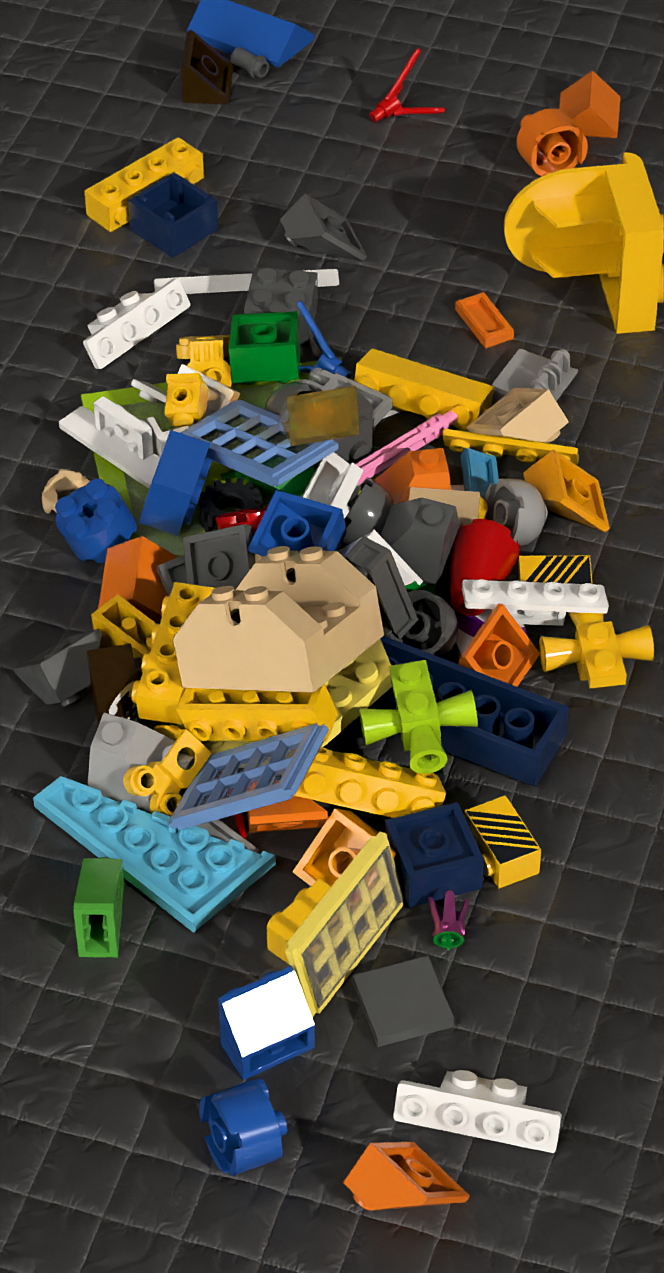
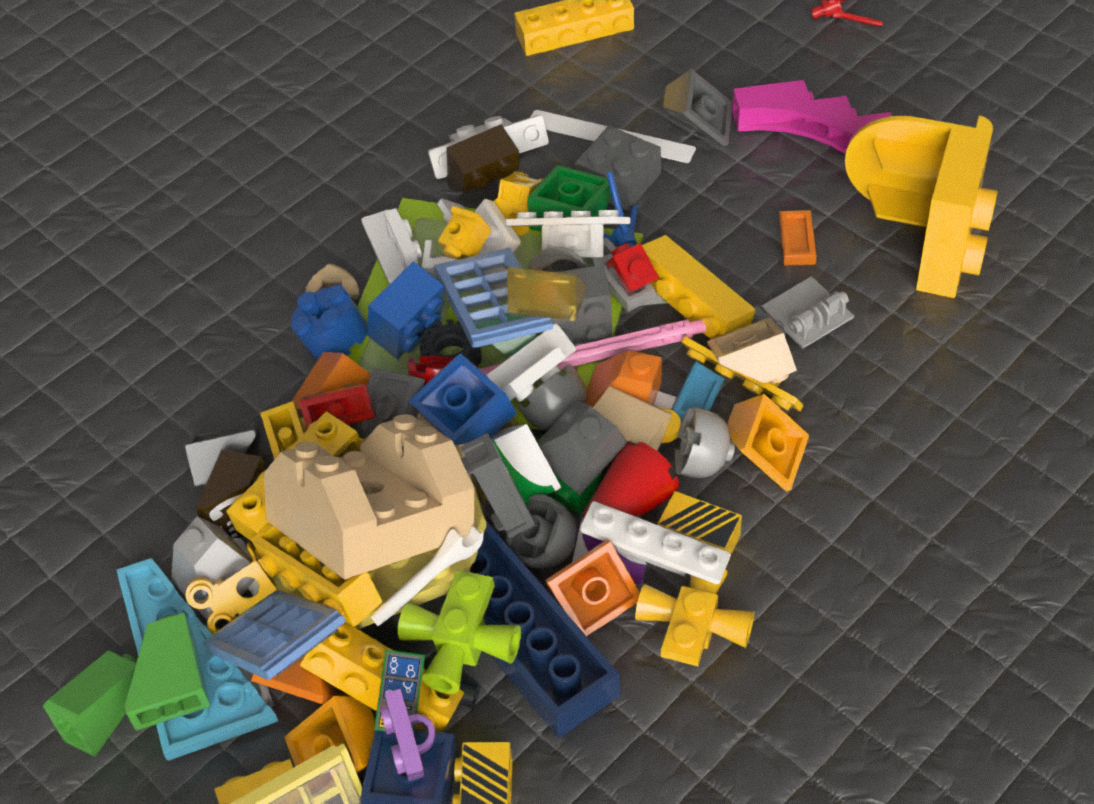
camera: 30 degrees right, 5 degrees up
(149, 334) = (481, 159): none -> dark brown slope
(153, 587) = (346, 404): none -> red slope
(159, 853) = (166, 674): none -> bright green slope
(173, 214) = (579, 55): dark blue container -> none
(298, 364) = (577, 233): none -> white bracket
(367, 378) = (632, 267): none -> red bracket
(379, 648) = (452, 550): none -> white piece
(397, 780) = (401, 672): none -> tile
(414, 208) = (793, 110): none -> dark pink arch
(434, 802) = (406, 752): none -> medium lavender plate
(551, 141) = (952, 84): orange brick -> none
(592, 106) = (1016, 60): orange slope -> none

